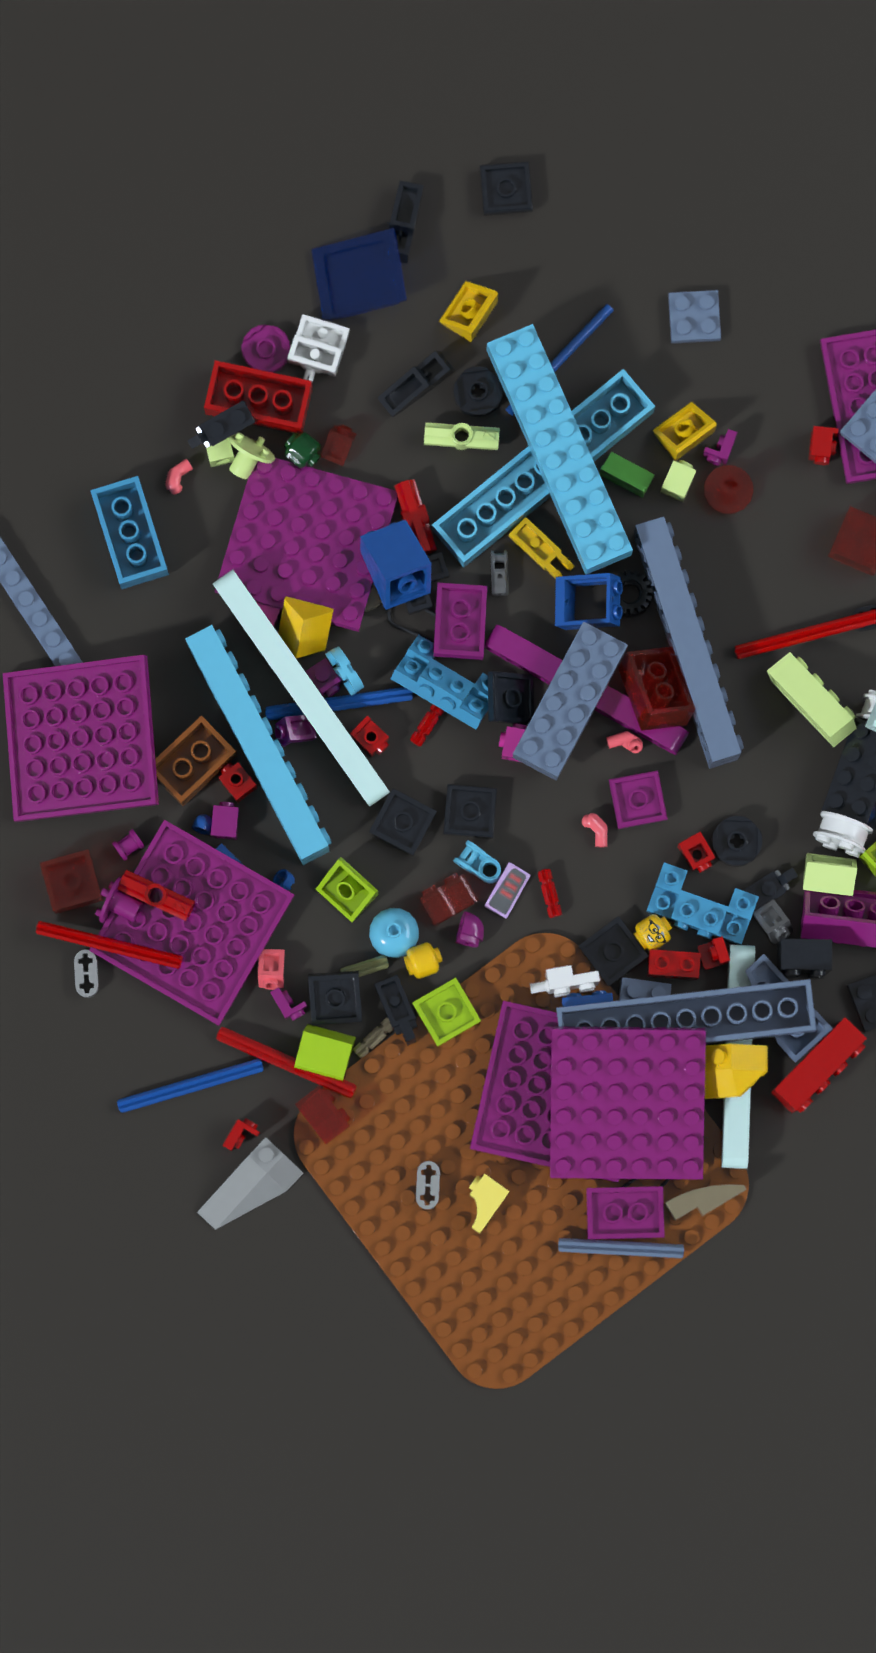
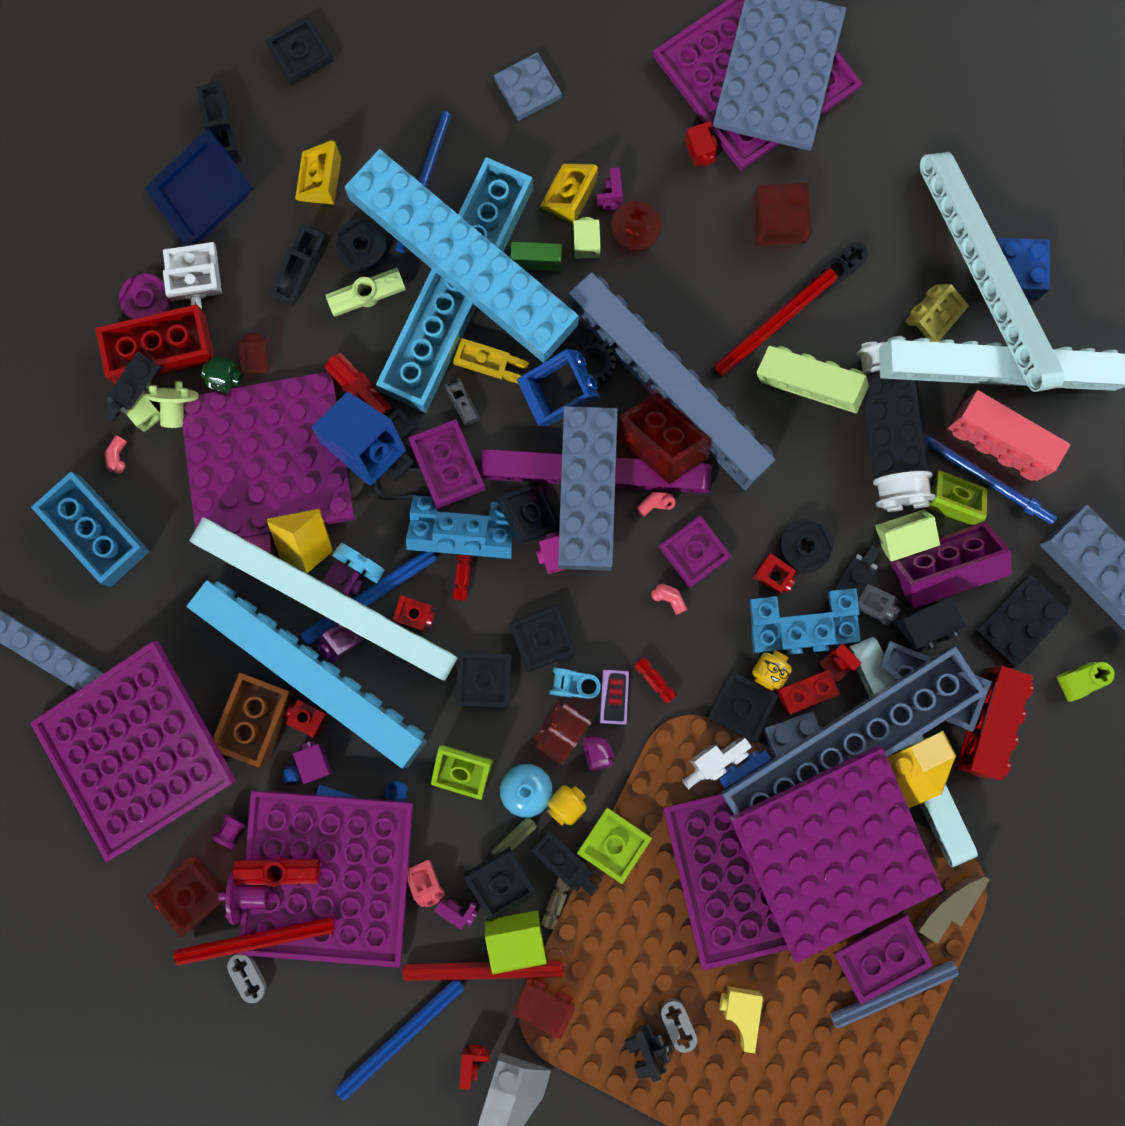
camera: 25 degrees left, 0 degrees up
(397, 1193) = (653, 1050): none -> black hips

